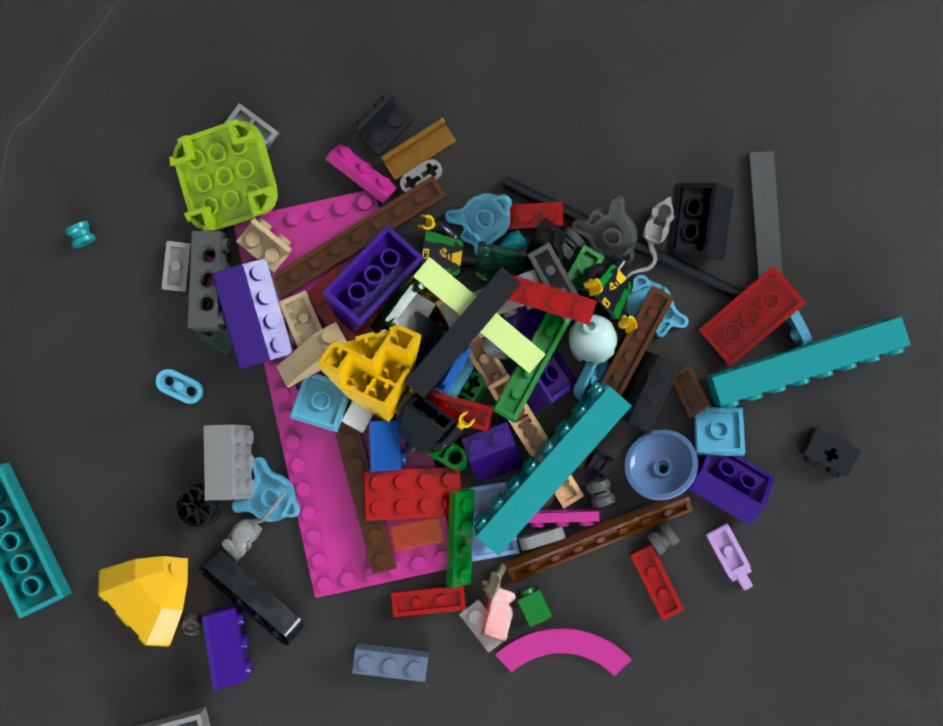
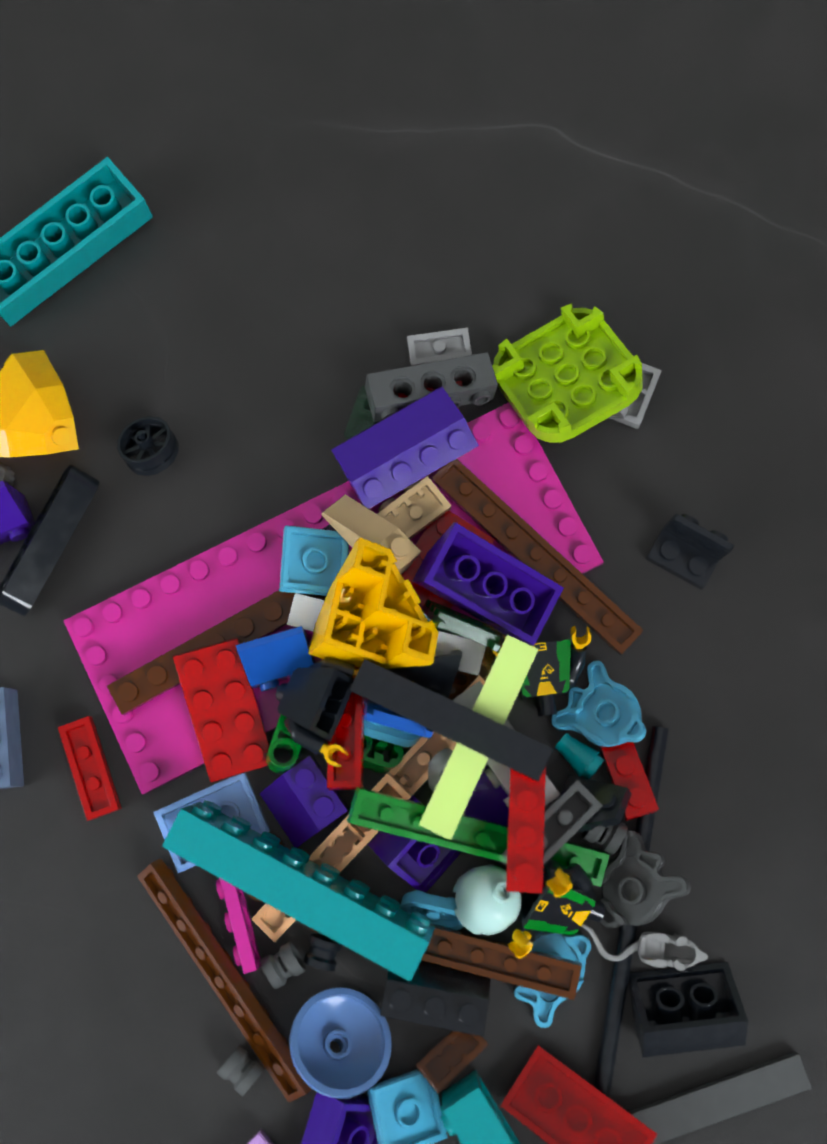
camera: 80 degrees right, 10 degrees down
(80, 234) = (447, 227): teal wheel -> none
(180, 387) = (292, 390): medium azure plate -> none
(228, 462) = (208, 466): light grey brick -> none
(244, 534) = (125, 511): light grey animal -> none
(264, 244) = (495, 441): tan bracket -> none
(267, 490) = (181, 528): medium azure tile -> none
(361, 173) = (618, 541): dark pink plate -> none
(417, 534) = (172, 730): clear orange plate -> none
(418, 149) = (670, 604): pearl gold panel -> none
(418, 171) = (641, 612): light grey beam -> none
(460, 537) = (180, 788): green plate -> none
(474, 618) = (72, 850): light grey plate -> none
(488, 266) = (546, 731): clear green plate -> none
(492, 586) = (126, 848): dark tan piece -> none
(499, 615) = (90, 868): clear red tile -> none
(533, 605) = (111, 912): green brick -> none
(541, 538) = (204, 899): light grey beam -> none
(563, 641) = (72, 965): dark pink tile -> none
(656, 582) = (179, 1077): red plate -> none

